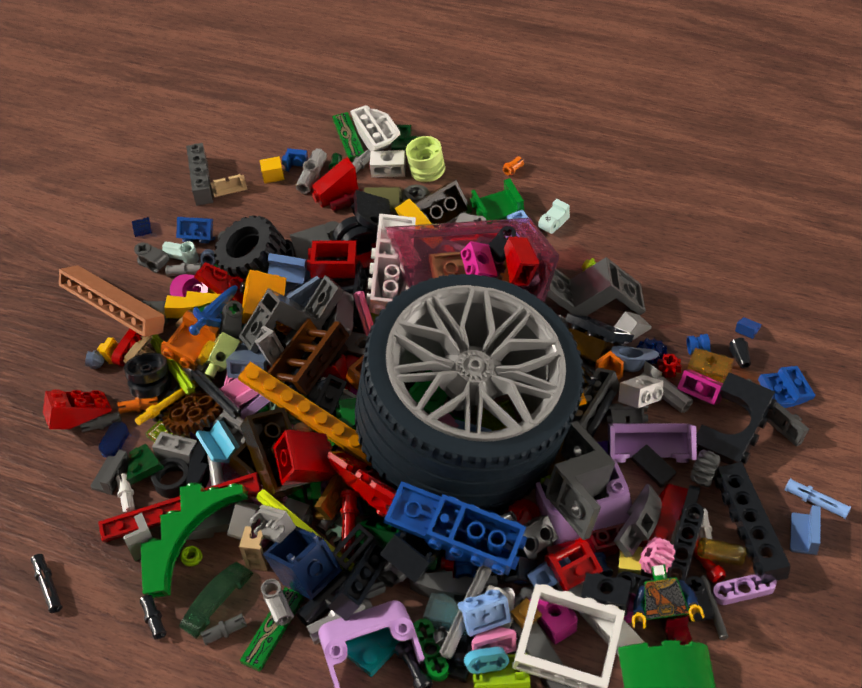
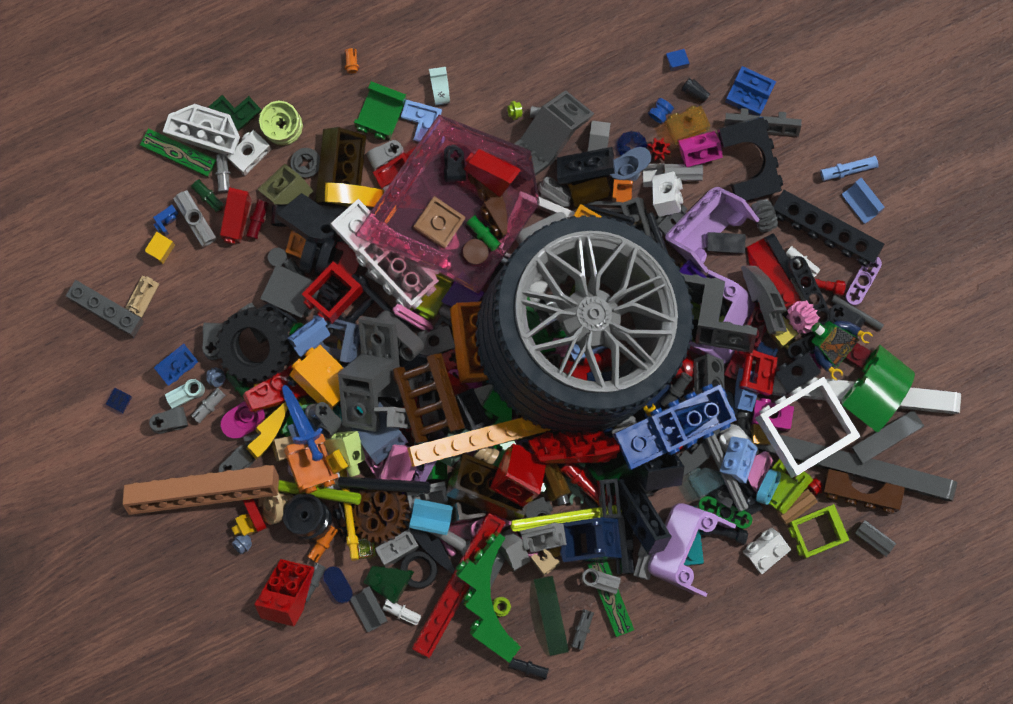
camera: 50 degrees left, 30 degrees up
(139, 536) = (461, 625): light grey panel -> none
(478, 260) = (458, 199): dark pink brick -> none
(721, 551) = (830, 269): clear yellow axle -> none

